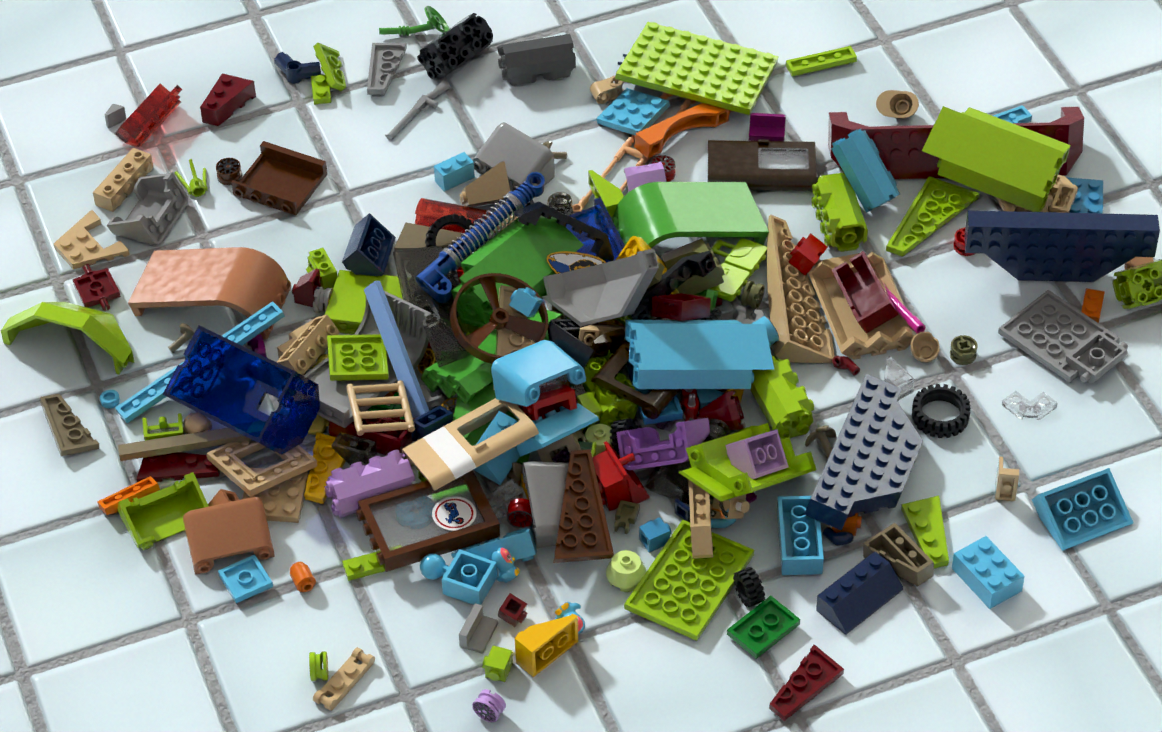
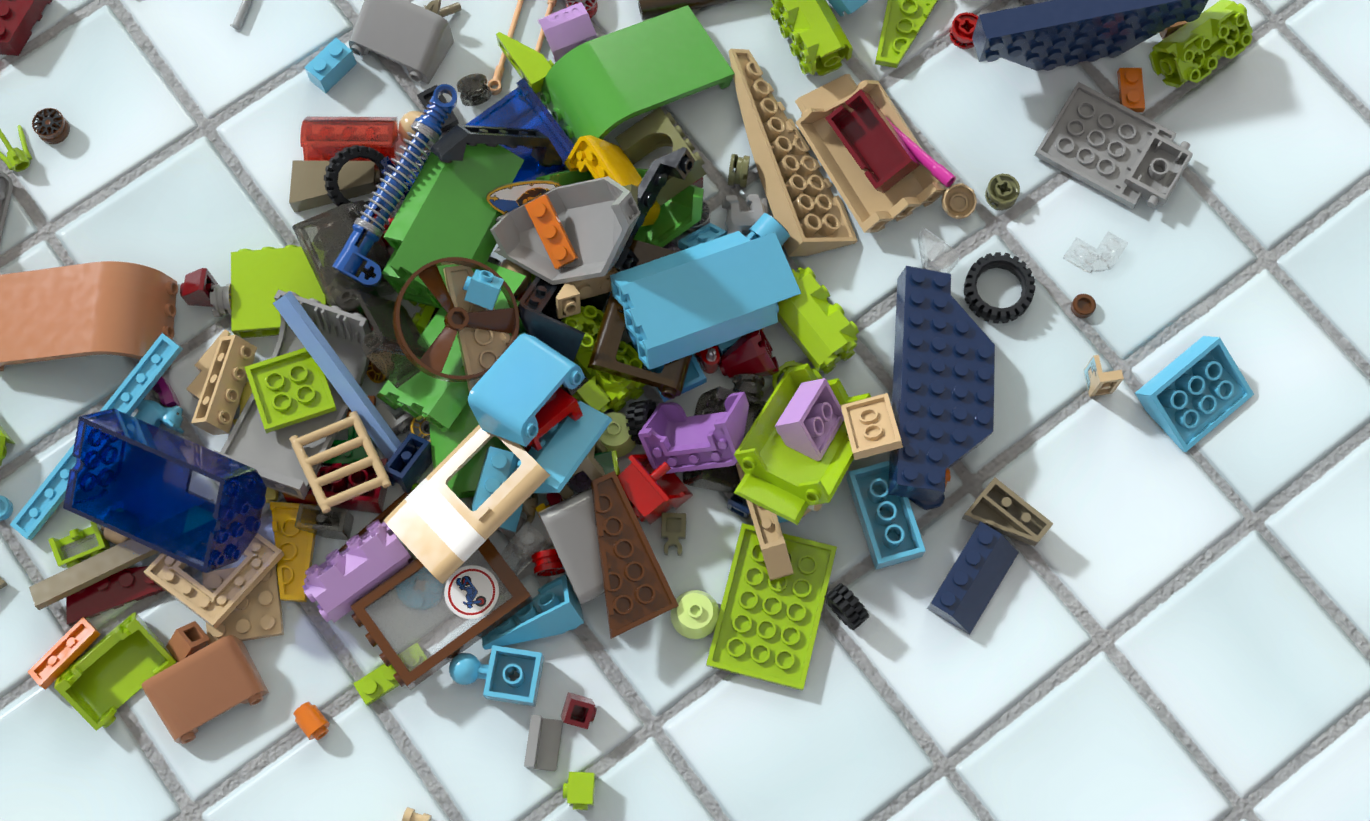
camera: 15 degrees left, 25 degrees up
(187, 334) = (69, 390): dark tan plant -> none
(245, 578) = (242, 740): medium azure plate -> none
(281, 178) = (119, 123): reddish brown panel -> none
(320, 260) = (208, 253): lime window -> none
(368, 248) = (258, 211): dark blue slope -> none
(487, 188) = (379, 88): tan slope -> none
(505, 564) = (551, 645): medium azure animal -> none
(545, 643) = (625, 756): yellow slope -> none
(569, 609) = (649, 704): medium azure animal -> none
(589, 290) = (551, 231): none -> orange plate
(607, 341) = (591, 305): dark brown slope -> none
(654, 534) = (714, 551): dark azure brick -> none
(680, 306) = (652, 240): dark red window -> none
(738, 265) = (711, 132): lime piece -> none
(763, 627) = (875, 653): green plate -> none
(803, 467) = (871, 426): none -> tan plate
(805, 683) = (945, 718): dark red wing -> none
(807, 253) = (787, 100): red brick -> none
(822, 433) = (873, 357): dark tan plant -> none
(844, 362) = (871, 242): dark red arm -> none
(927, 527) = (1023, 456): lime wing -> none
(988, 572) = (1112, 511): medium azure brick -> none
(1008, 438) = (1083, 305): none -> reddish brown tile

